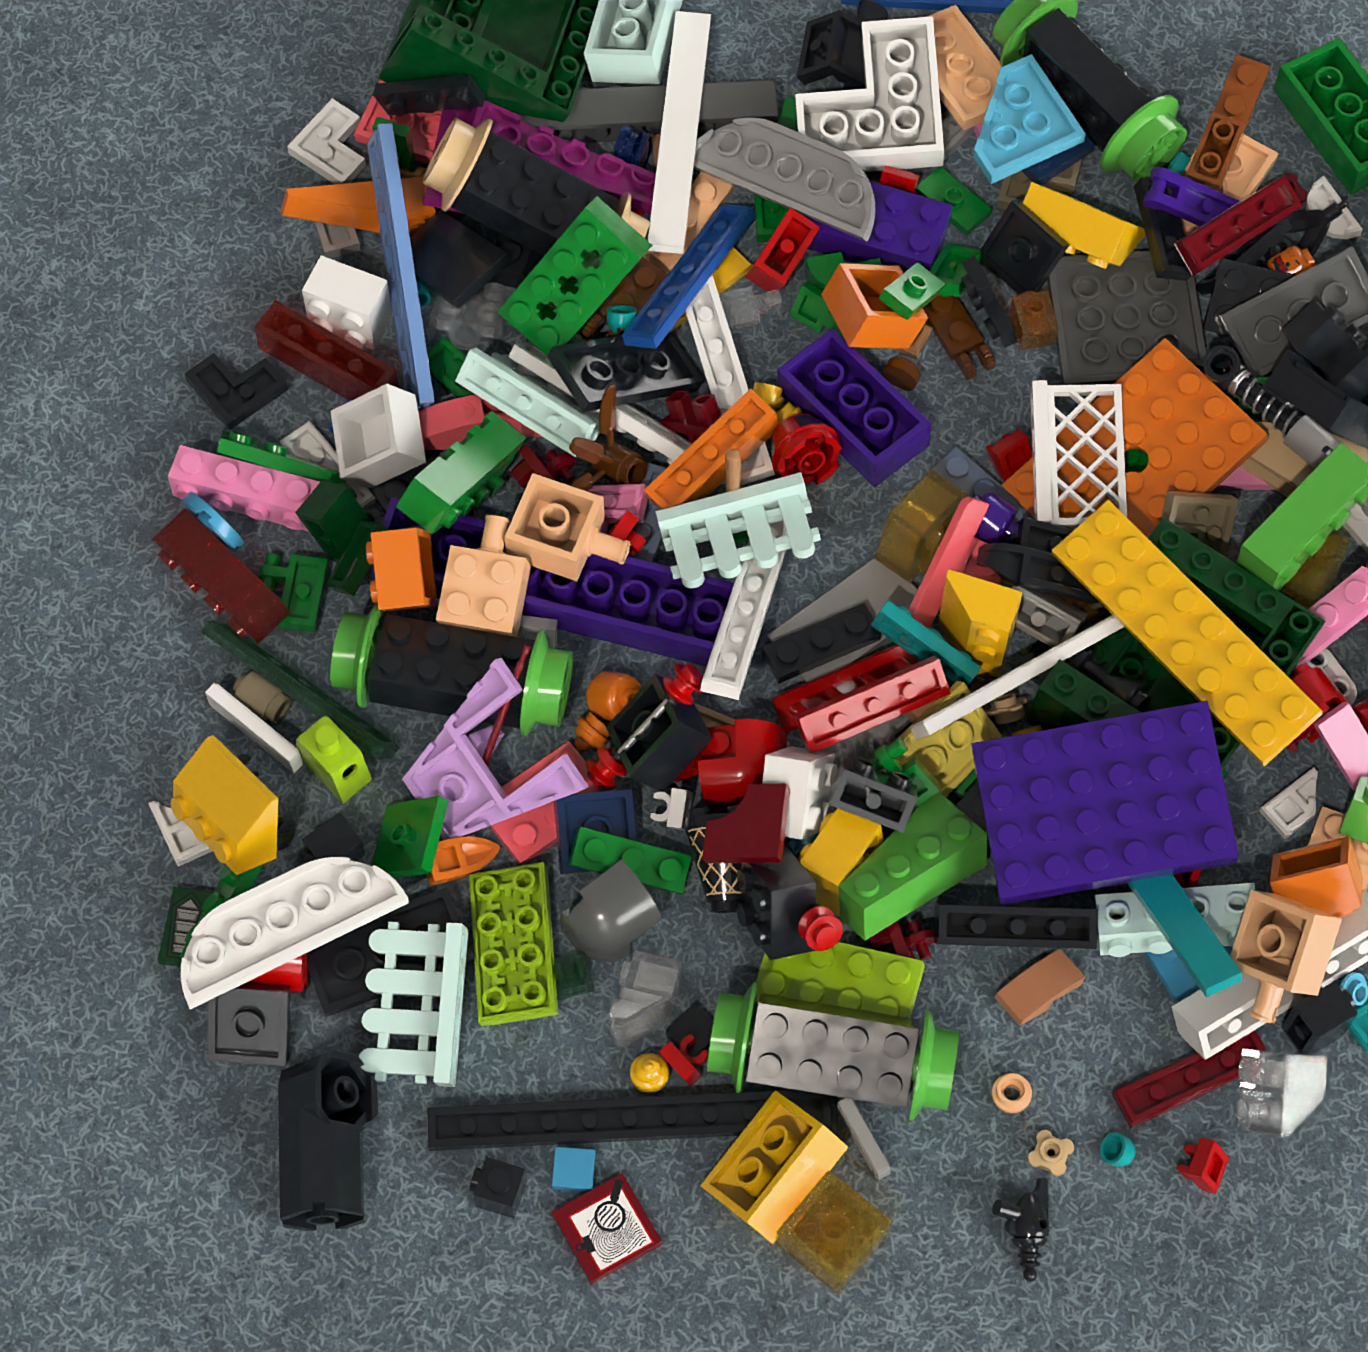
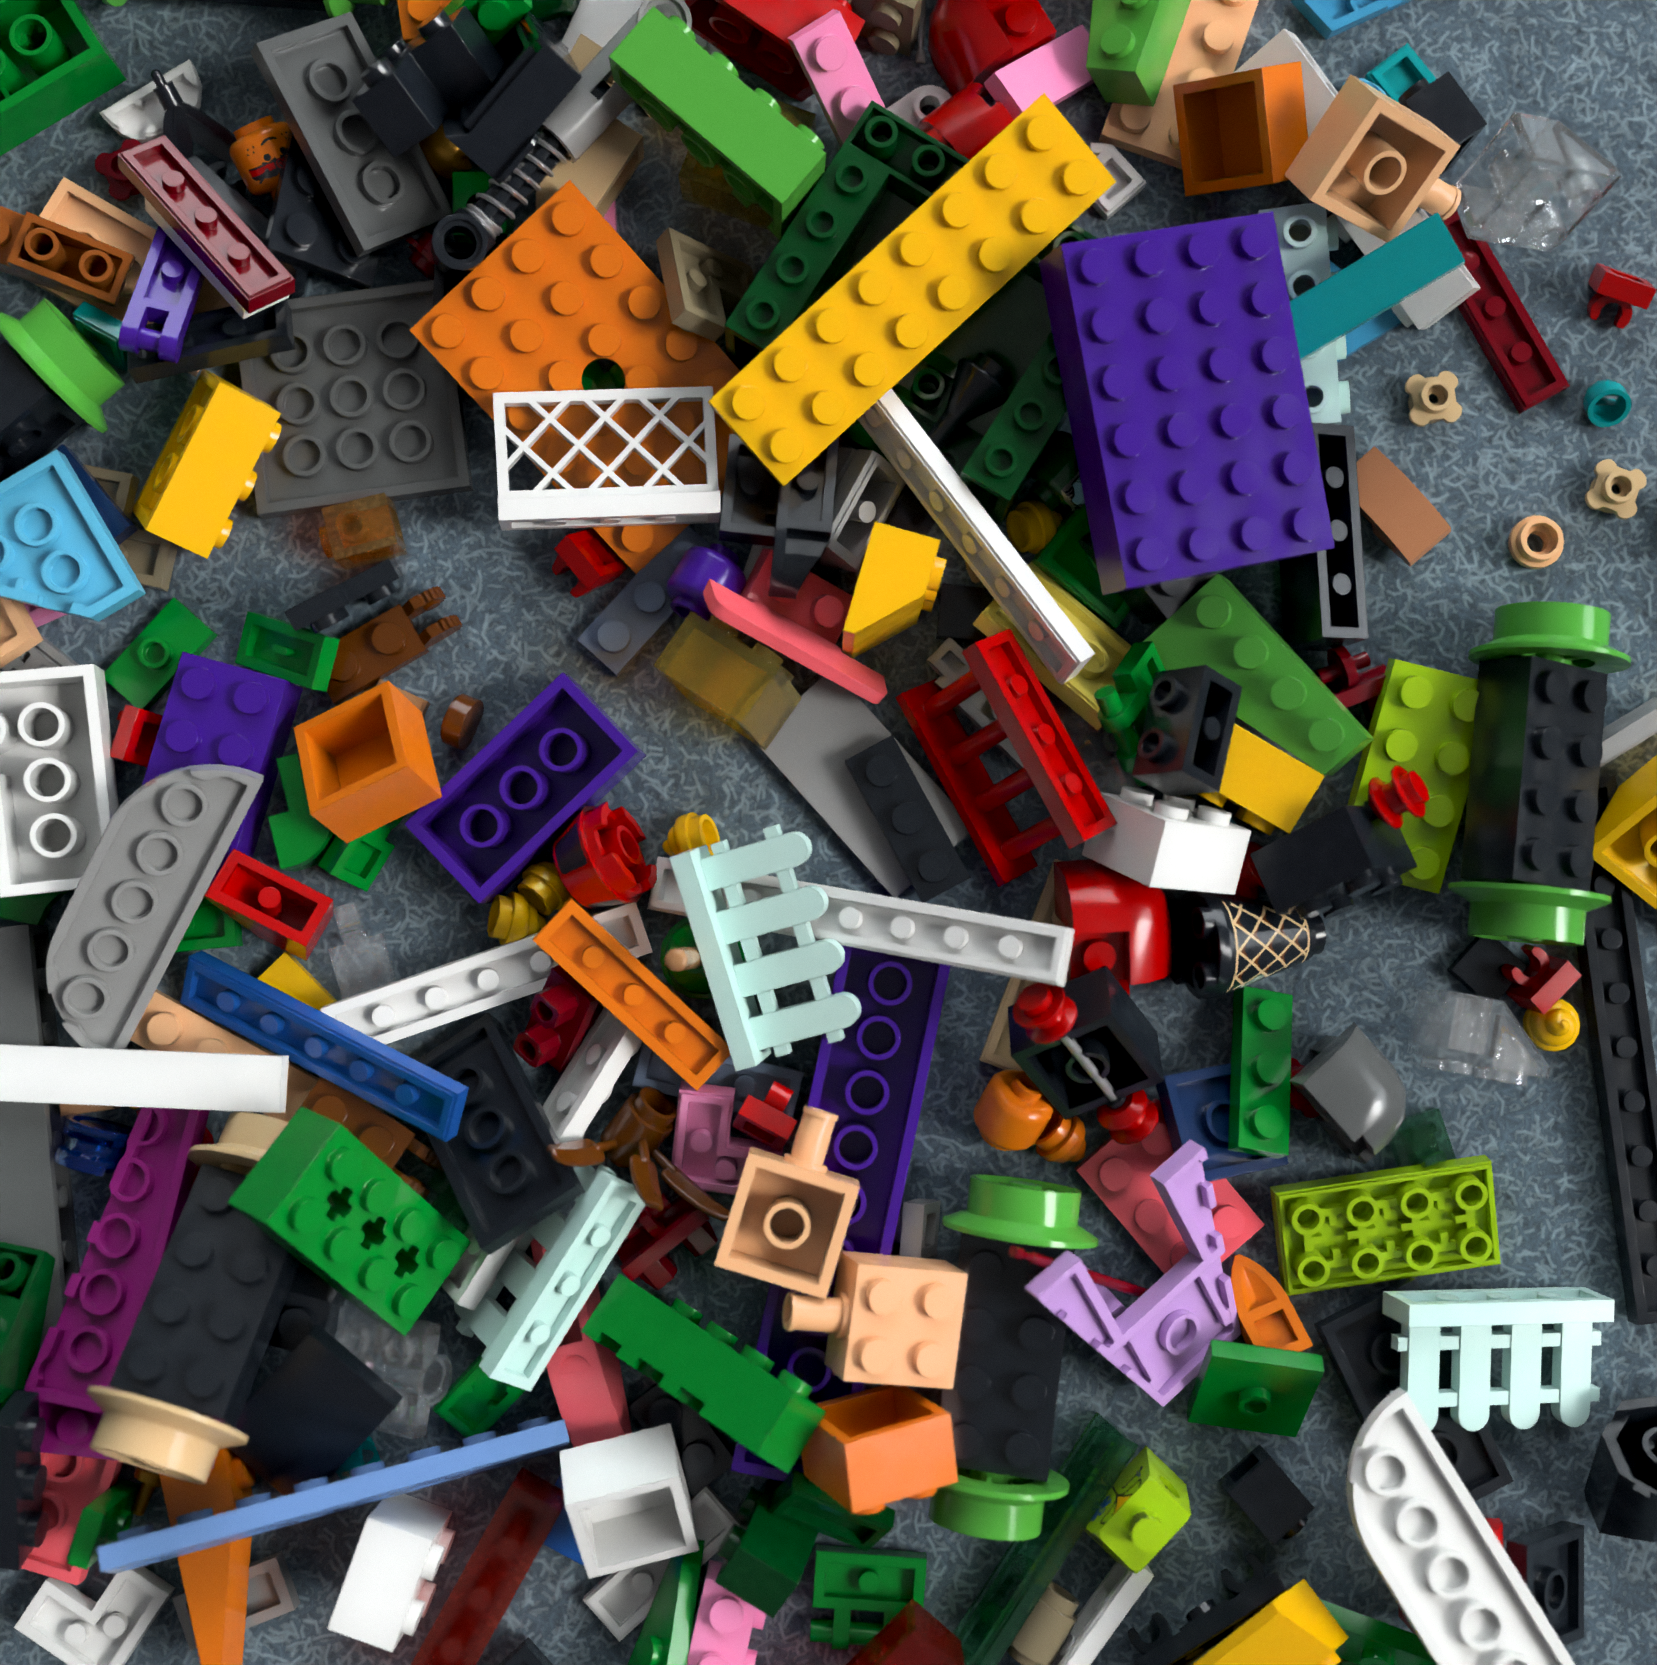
camera: 95 degrees left, 20 degrees up
(620, 317) = (405, 1144): teal hinge -> none
(677, 808) = (1178, 1010): white tile -> none
(752, 830) = (1258, 899): dark red tile -> none
(821, 511) = (691, 832): none -> yellow plate
(911, 291) = (347, 704): green plate -> none
(924, 642) = (917, 667): teal plate -> none
(1022, 249) = (251, 546): black tile -> none
(1116, 1035) = (1421, 408): none -> tan plate

